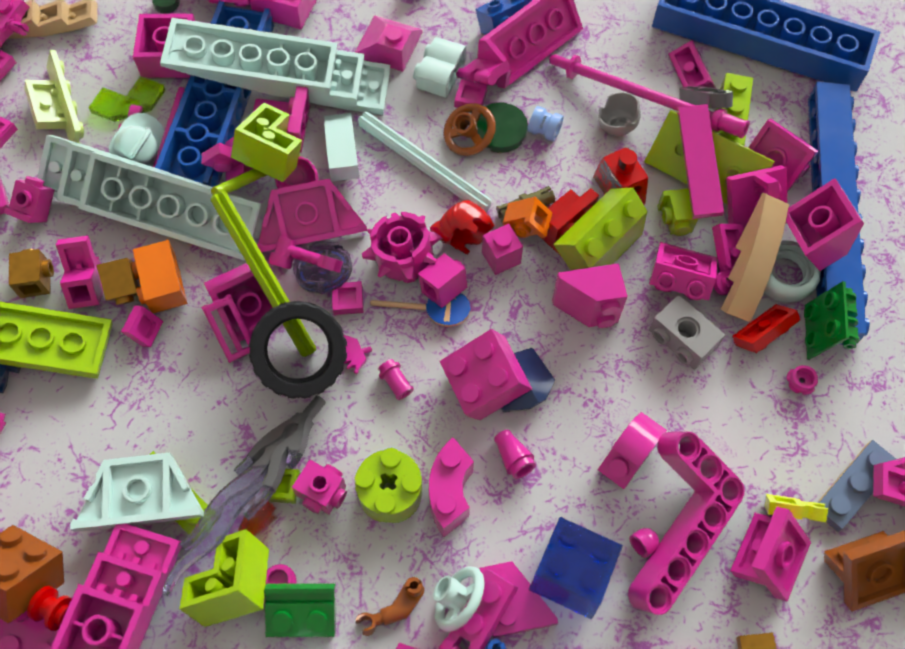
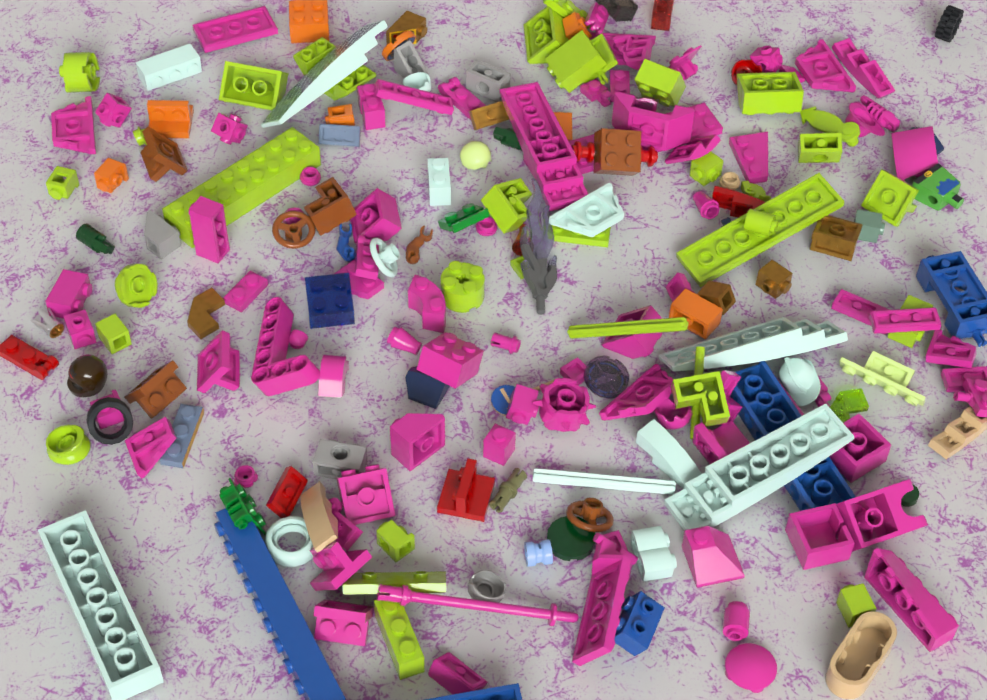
camera: 145 degrees right, 15 degrees down
(30, 200) = (819, 309): dark pink brick -> none
(81, 277) = (745, 292): dark pink brick -> none
(218, 304) = (625, 308): dark pink tile -> none
(286, 252) = (634, 366): dark pink brick -> none
(298, 387) = (570, 307): black tyre -> none
(320, 487) = (499, 266): dark pink brick -> none
(355, 354) = (544, 345): dark pink piece -> none
(463, 225) = (537, 441): red hair -> none
(528, 217) = (495, 464): orange brick -> none
(604, 230) = (437, 477): lime slope -> none
(622, 171) = (451, 534): red torso -> none
(700, 161) = (399, 557): dark pink tile -> none
(705, 95) = (417, 621): dark grey beam -> none
(799, 509) = (220, 394): neon yellow plate -> none
(825, 224) = (284, 546): dark pink slope -> none

